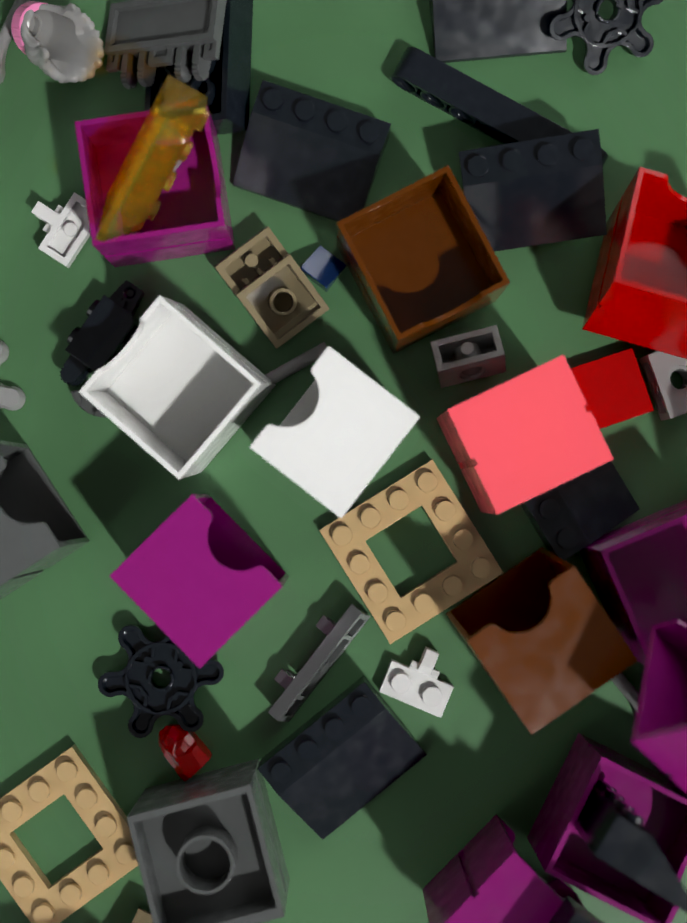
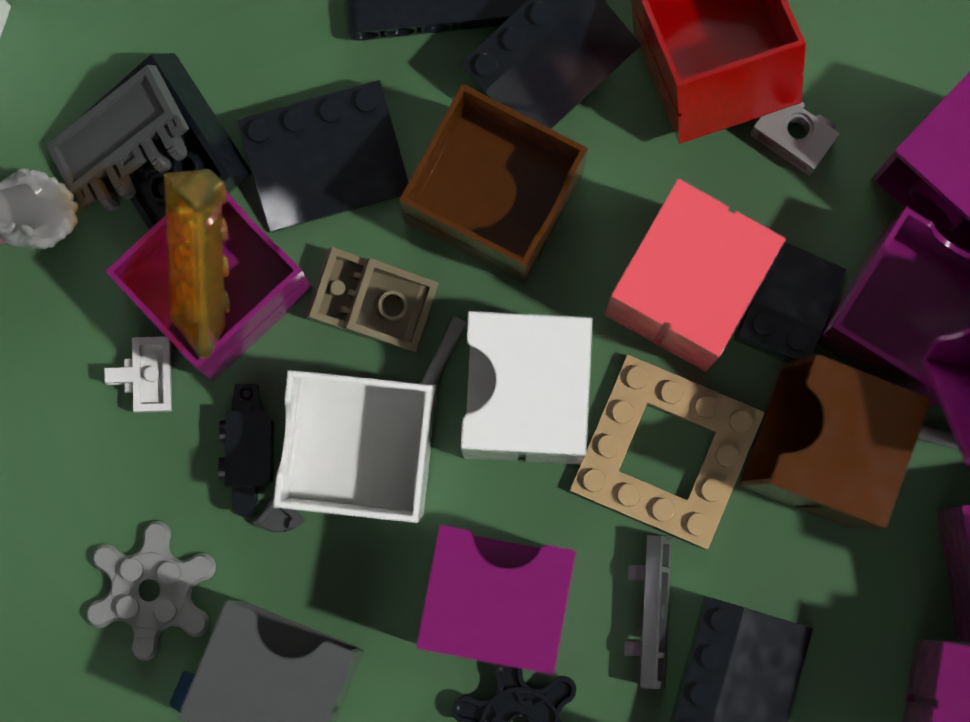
camera: 30 degrees left, 5 degrees down
(323, 268) = (406, 250): slope -> none
(418, 683) = (759, 568): white hinge -> none
(469, 356) = (595, 238): light grey brick -> none
(613, 388) = (745, 177): red tile -> none

